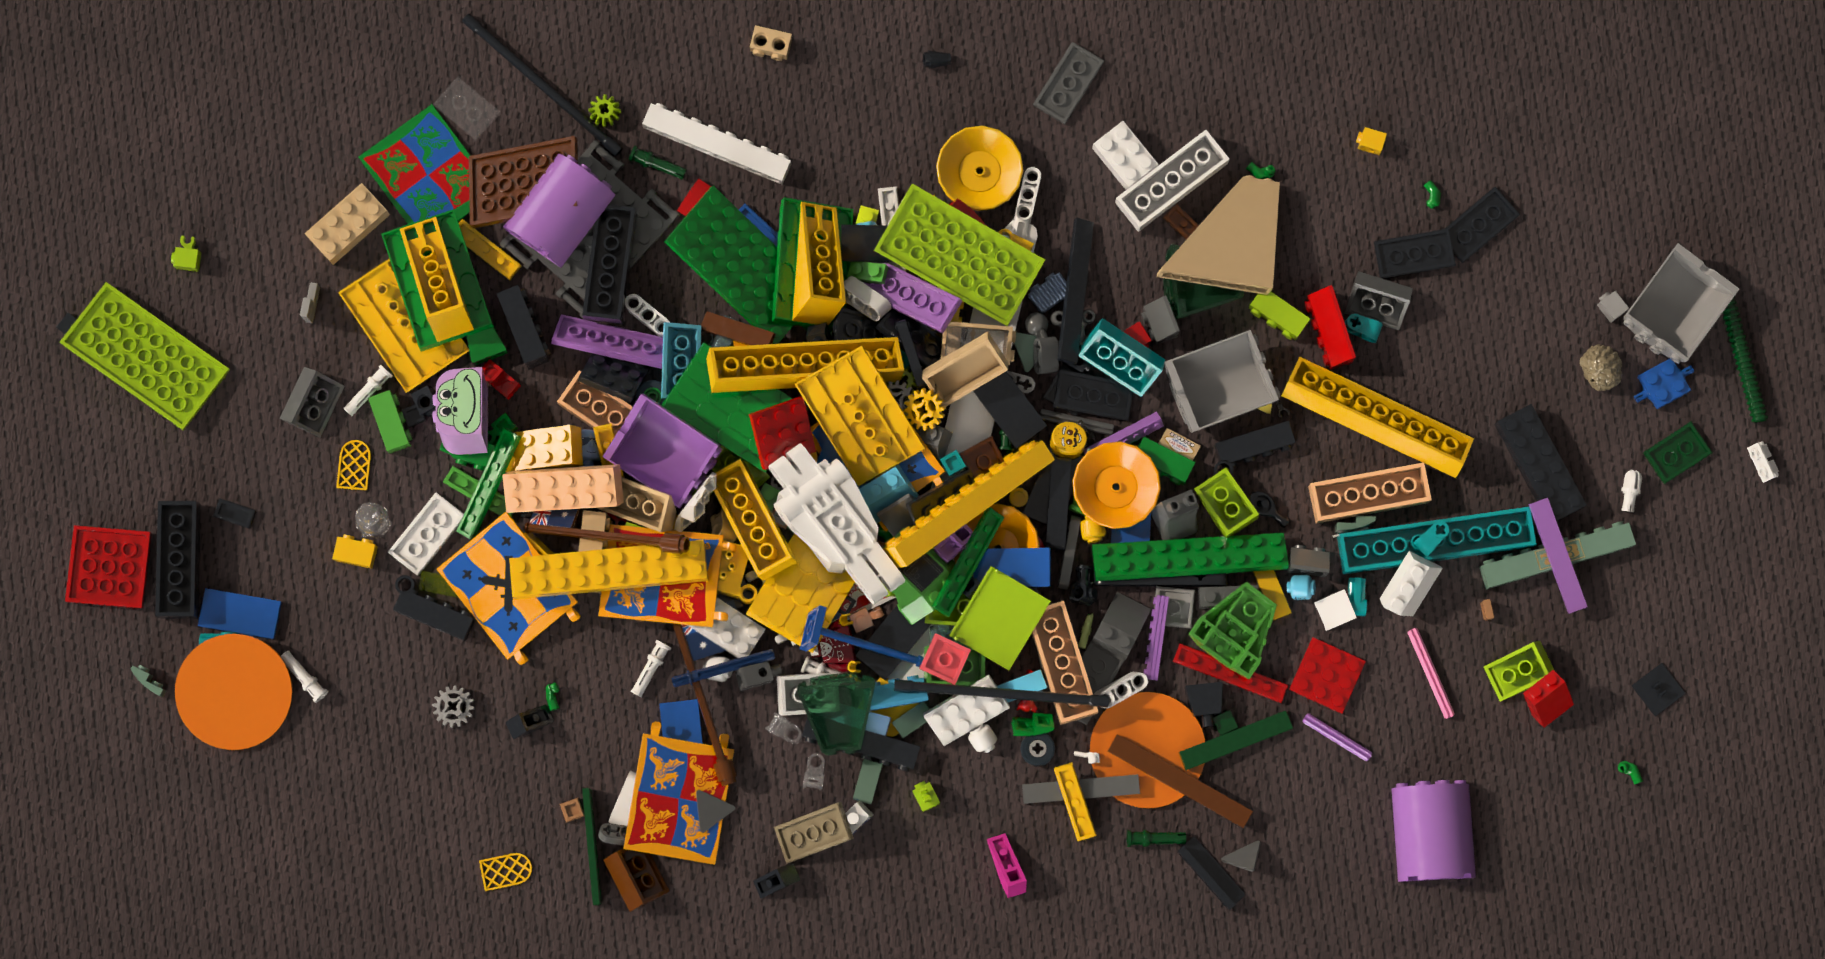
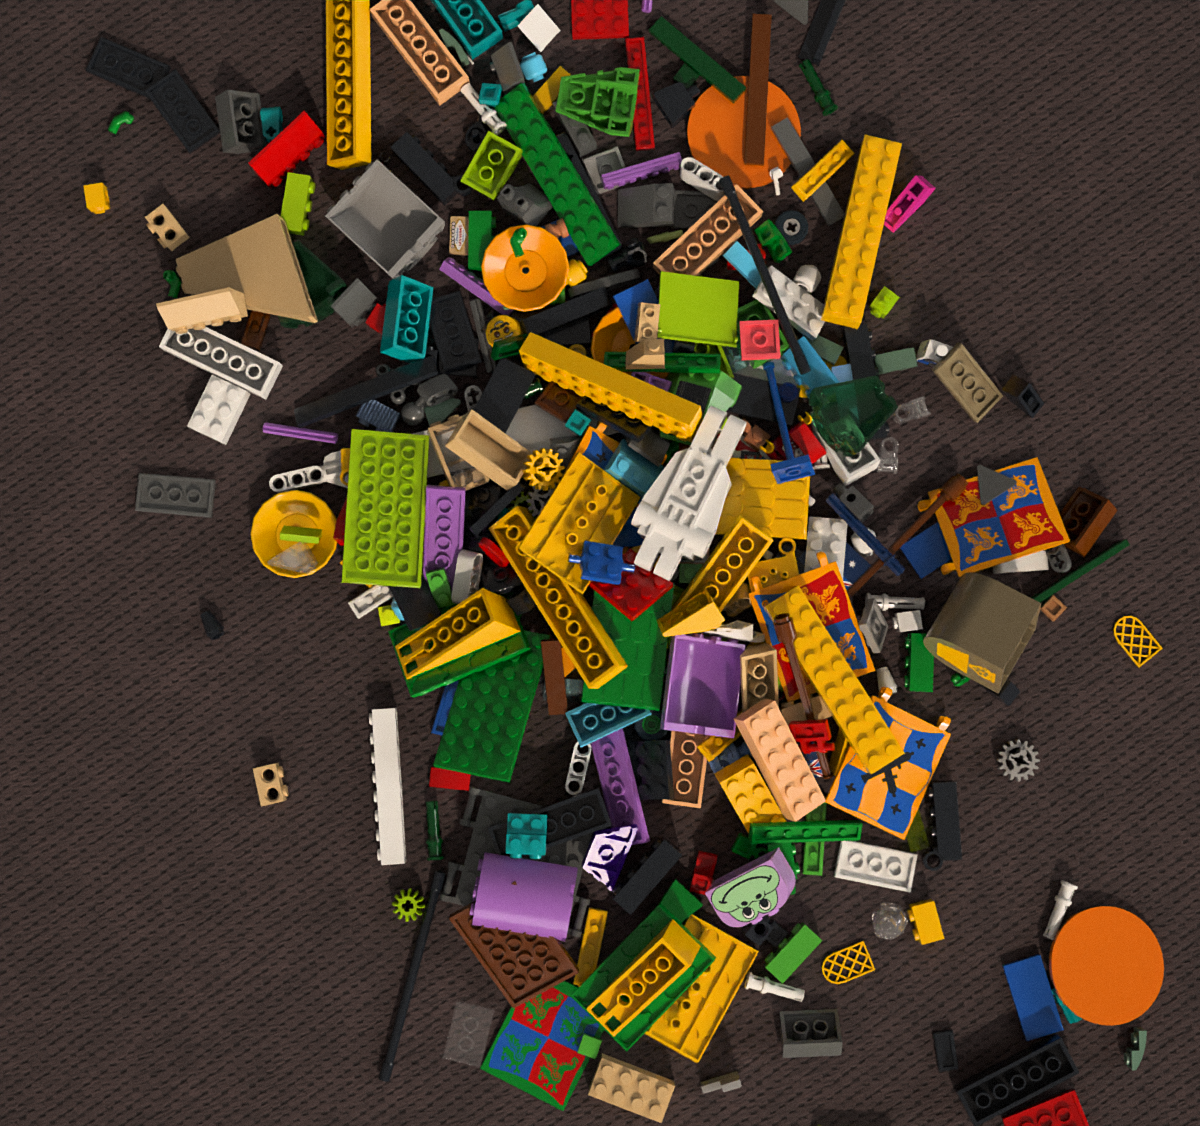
camera: 115 degrees left, 5 degrees up
(402, 206) = (589, 1046): none -> bright green tile
(559, 302) = (608, 853): none -> wing
(573, 527) = (809, 731): none -> red plate
(583, 726) = (983, 629): none -> dark tan brick
(584, 625) = (885, 679): none -> white cone
(585, 663) = (918, 664): none -> green brick
(611, 237) = (526, 835): none -> teal plate
(627, 671) = (907, 621): none -> white brick
(638, 635) = (873, 625): none -> light grey plate
(725, 471) = (693, 616): none -> yellow slope
(814, 414) = (601, 562): none -> blue plate
(832, 658) = (807, 442): none -> red slope
(874, 330) = (493, 552): none -> red tile
(887, 665) = (788, 391): none -> clear blue plate
(952, 156) = (296, 558): none -> clear slope
(975, 172) = (298, 534): none -> lime tile
(979, 549) = (646, 355): none -> tan slope
(1000, 806) = (861, 232): none -> yellow brick
(1009, 564) = (647, 321): none -> tan brick
(1052, 434) = (507, 347): none -> dark green tile
(1069, 218) = (302, 433): none -> medium lavender axle
(1138, 532) = (559, 229): none -> nougat wheel
(1143, 487) = (516, 241): none -> green arm
(1214, 181) = (203, 310): none -> tan slope
(1293, 533) = (490, 94): none -> teal tile
(1307, 517) = (488, 115): none -> white pin
(1315, 193) = (168, 226): none -> tan brick

